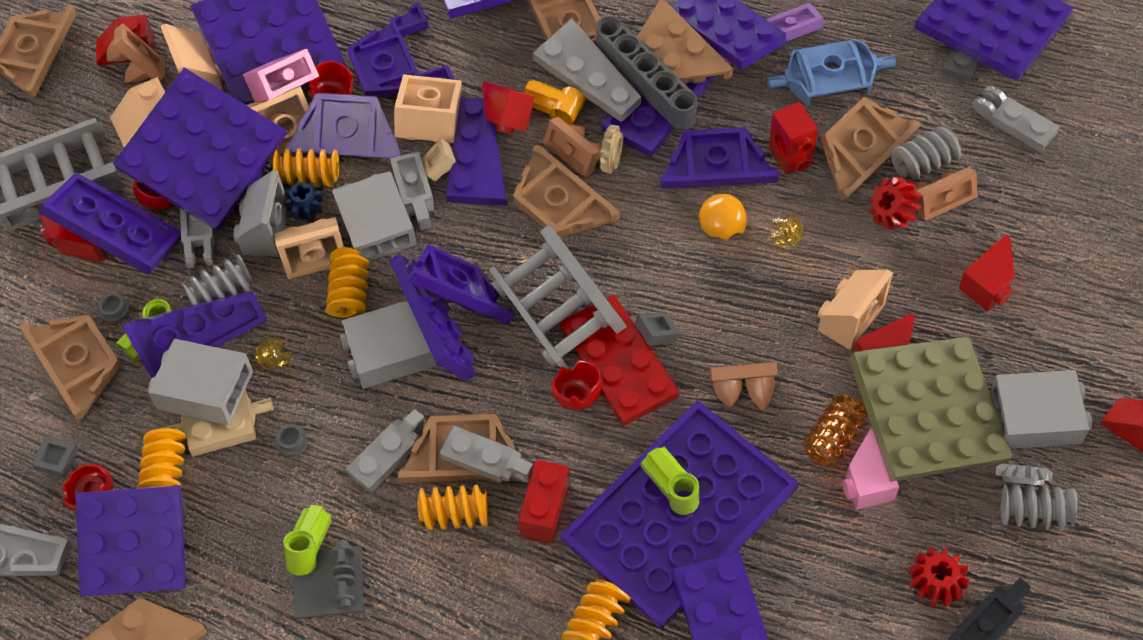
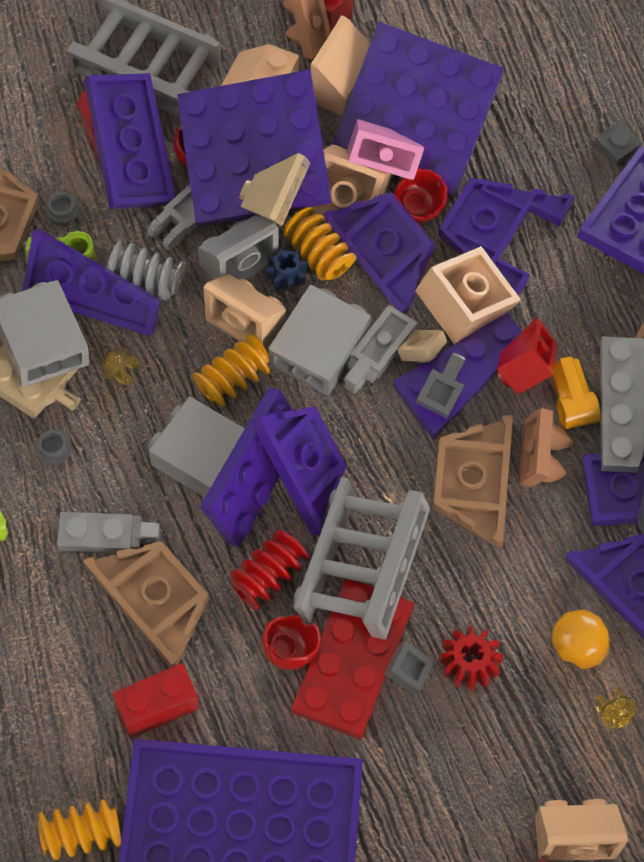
camera: 45 degrees right, 5 degrees up
(252, 150) = (275, 188): none -> tan slope
(452, 507) = (89, 631): light orange piece -> none
(481, 168) = (441, 388): none -> dark grey plate
(484, 456) = (155, 615): light grey hinge -> none
(512, 363) = (267, 567): none -> red piece
(611, 149) = (561, 484): tan gear -> none
(671, 479) = (257, 794): lime piece -> none
(693, 291) = (461, 648): none -> red gear
(758, 380) = (433, 795): nougat tile -> none

